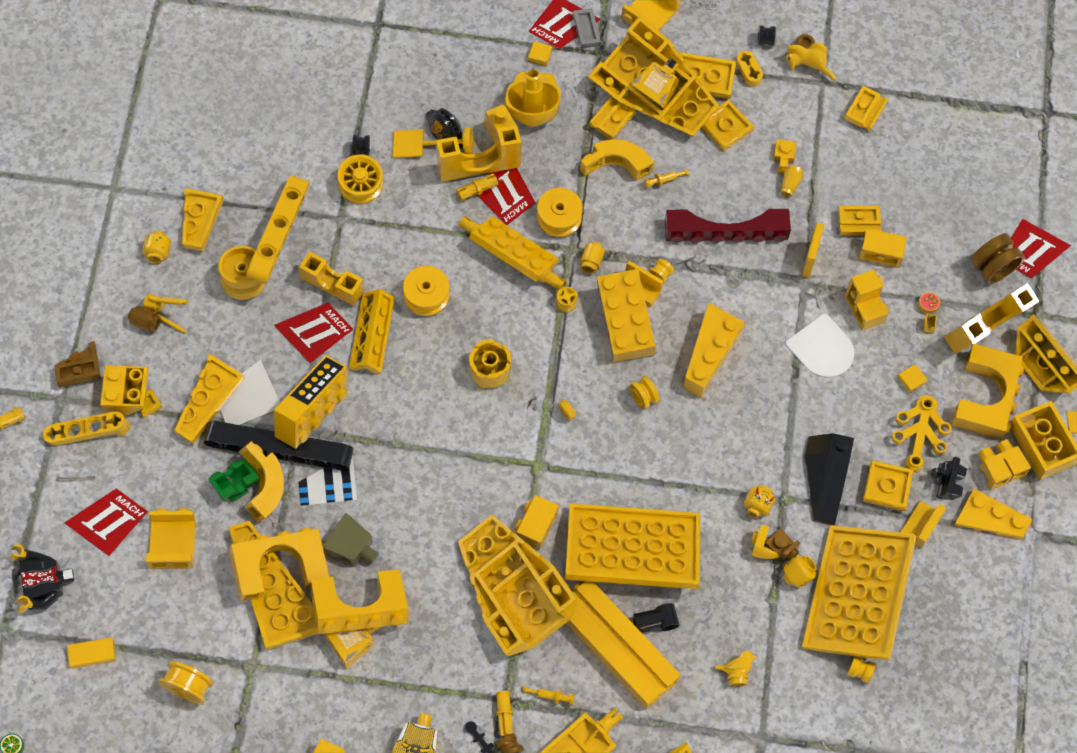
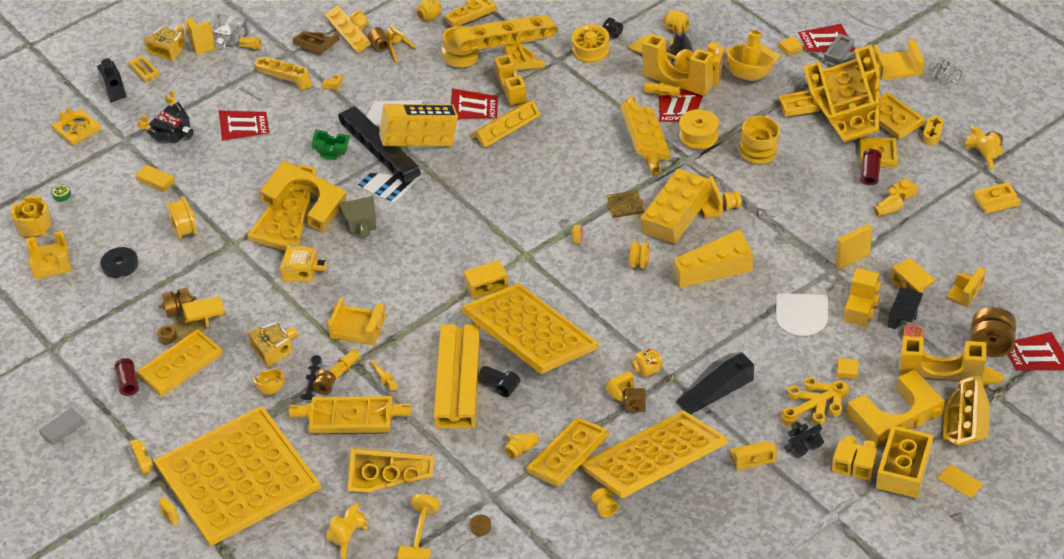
camera: 50 degrees right, 20 degrees down
(97, 325) = (350, 27): none -> yellow plate
(124, 389) = (323, 60): yellow slope -> none
(171, 539) = (264, 153): yellow panel -> none
(212, 391) = (364, 98): yellow wing -> none
(270, 481) = (342, 162): yellow arch -> none
(303, 240) = (523, 57): none -> yellow wing
(336, 616) = (340, 257): yellow arch -> none
(413, 96) = (676, 22): none -> yellow head
(426, 290) = (562, 119): yellow wheel -> none
(470, 660) = (356, 323): none -> yellow panel
(491, 374) = (555, 179): yellow brick -> none
(515, 587) = (425, 301): yellow wedge -> none
(568, 342) = (625, 204): none -> clear yellow piece
(569, 295) = (649, 178): yellow wheel -> none
(592, 257) = (695, 164): yellow brick -> none
(620, 153) = (787, 125): yellow arch -> none
(627, 188) = (759, 139): none -> yellow wheel
(658, 82) = (846, 91): yellow torso -> none
(660, 179) = (796, 154): yellow piece -> none
(685, 226) = (839, 219): dark red arch -> none
(742, 149) = (870, 167): none -> dark red piece
(766, 35) = (966, 117): black wheel -> none
(782, 644) = (567, 451): none -> yellow tile
(799, 571) = (627, 417): yellow head -> none
(856, 219) = (919, 253): yellow plate -> none
(888, 485) = (752, 415): yellow plate -> none
(904, 282) = (904, 307): none -> black panel
(926, 222) = (966, 287): none -> yellow panel
(929, 323) = (896, 344): yellow piece -> none
(992, 516) = (812, 483): yellow wing -> none

